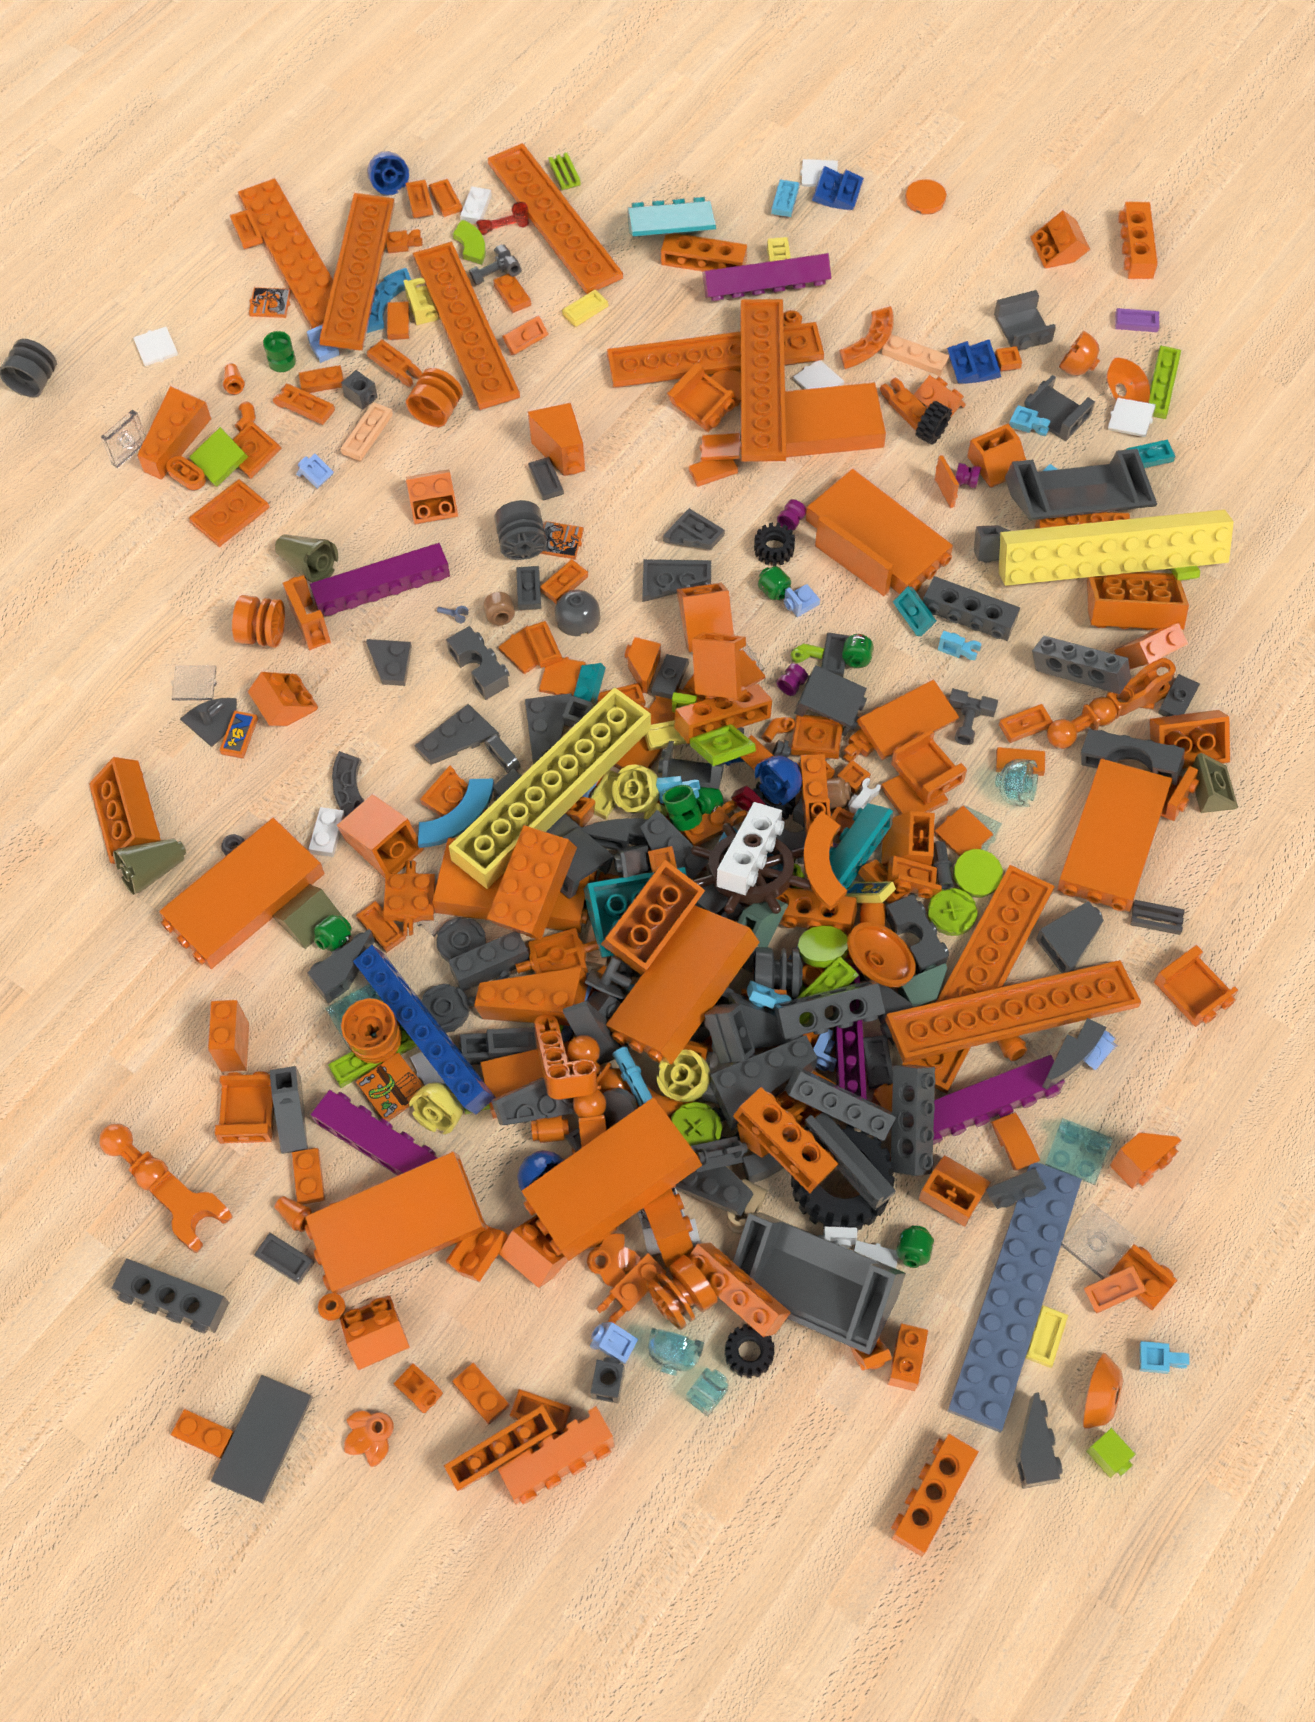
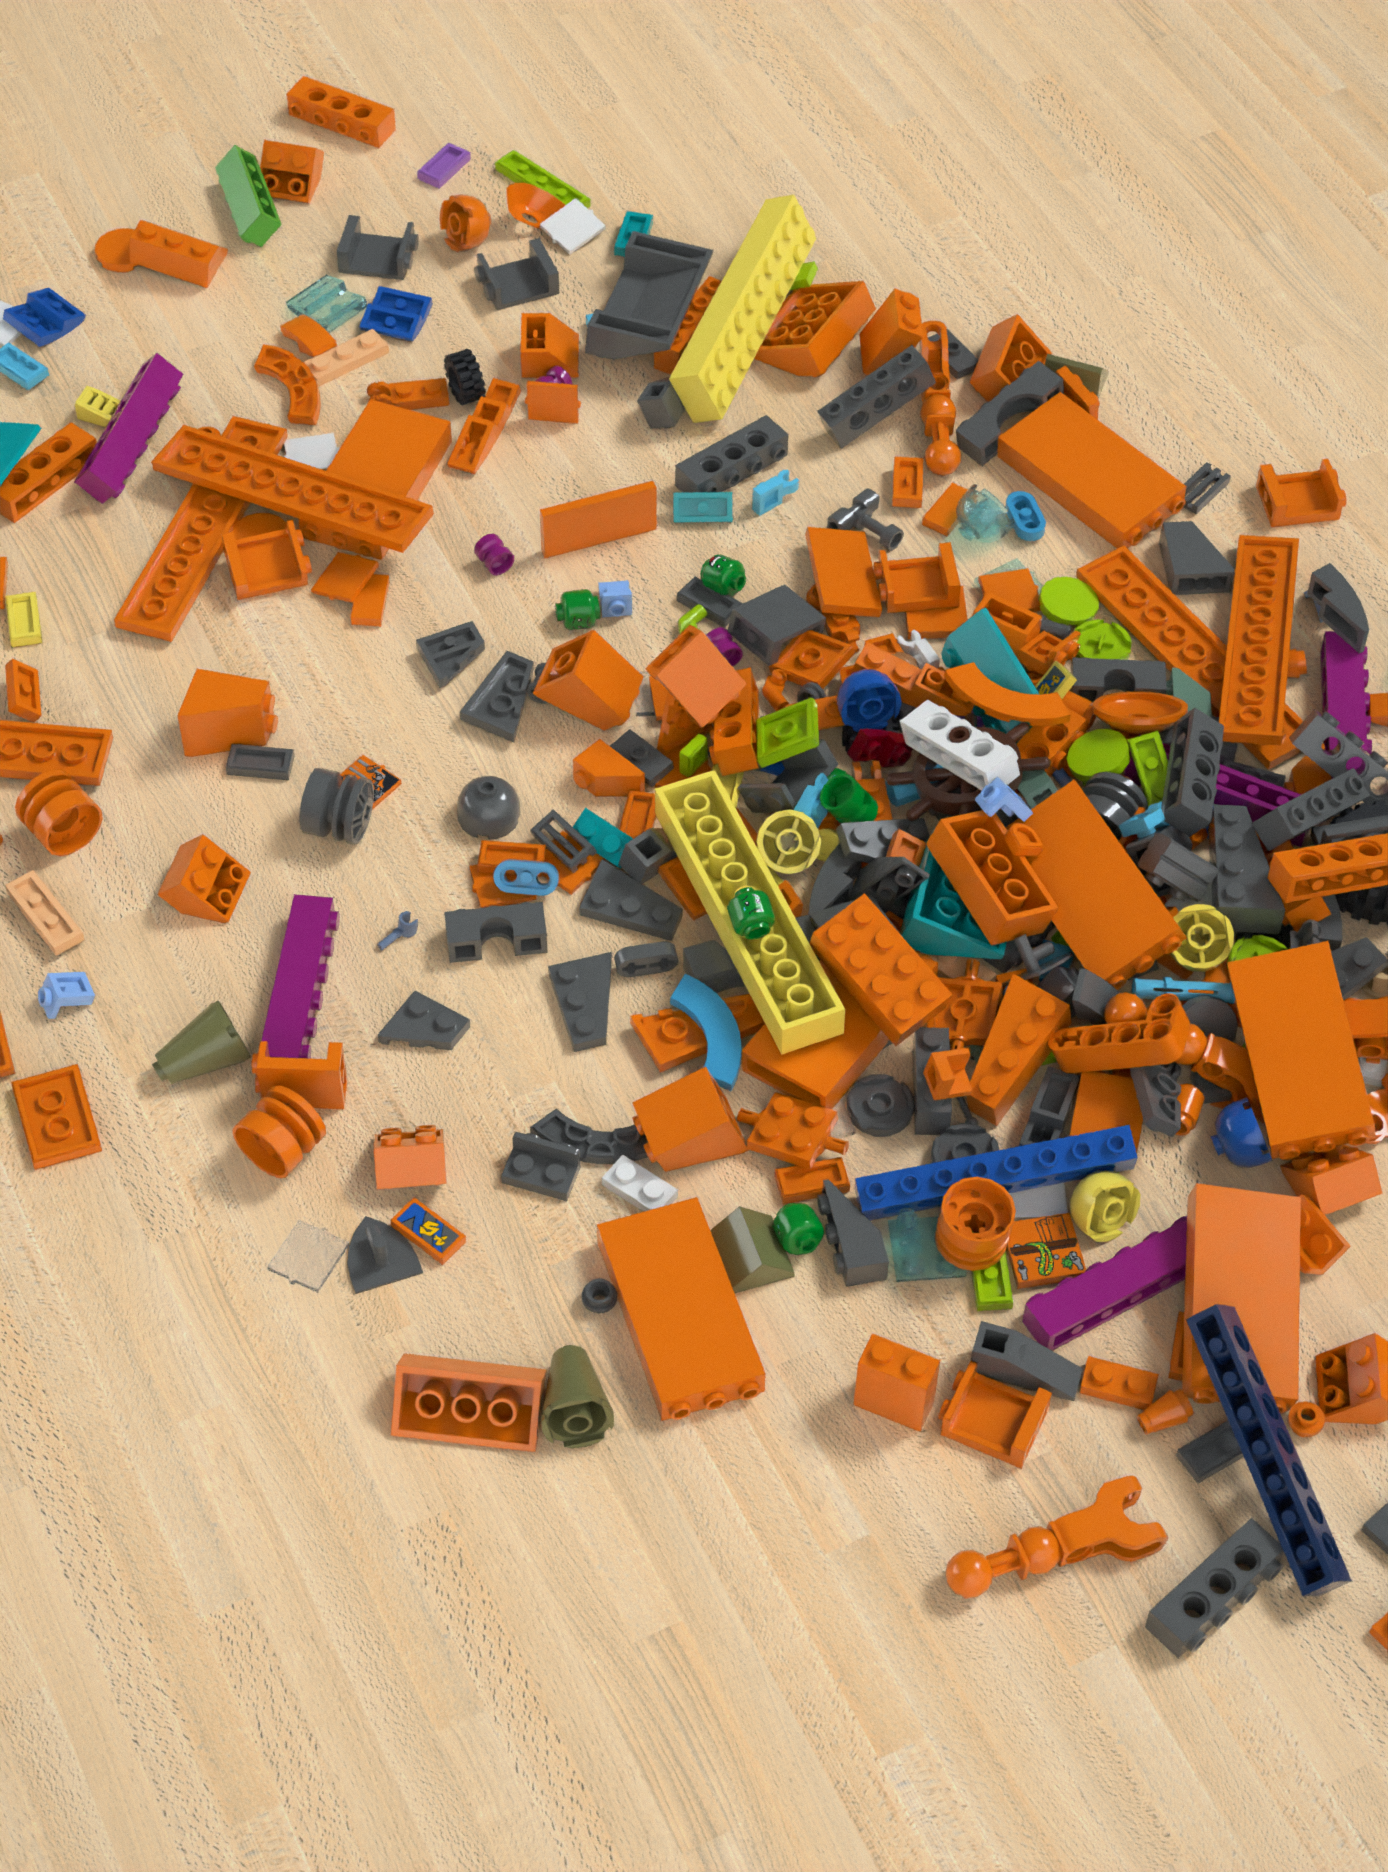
camera: 65 degrees left, 10 degrees down
(199, 1351) = (1268, 1451): none -> dark blue brick
(312, 772) = (542, 1166): none -> dark grey bracket
(477, 964) = (947, 1074): none -> orange panel
(499, 608) = (430, 879): medium nougat head -> none
(527, 657) = (527, 877): none -> dark azure plate
(527, 784) = (751, 913): none -> green head
(528, 587) = (417, 840): dark grey plate -> none
(564, 580) = (434, 802): orange plate -> none
(574, 664) = (579, 857): none -> dark grey tile
(687, 921) = (1023, 841): none -> orange tile
(713, 894) = (1000, 795): none -> light blue bracket
(774, 554) = (522, 575): black tyre -> none
(885, 528) = (521, 488): orange brick -> none
(903, 458) = (484, 426): none -> orange slope
(918, 325) = (309, 334): none -> orange slope
(936, 390) = (423, 361): orange bracket -> none
(939, 221) = (175, 253): none -> orange slope
(956, 321) = (327, 303): none -> clear light blue slope
(1008, 358) = (417, 282): orange plate -> none
(1015, 231) = (248, 196): none -> bright green brick
(1027, 419) = (510, 306): medium azure plate -> none
(1042, 812) = (1027, 516): none -> dark azure plate

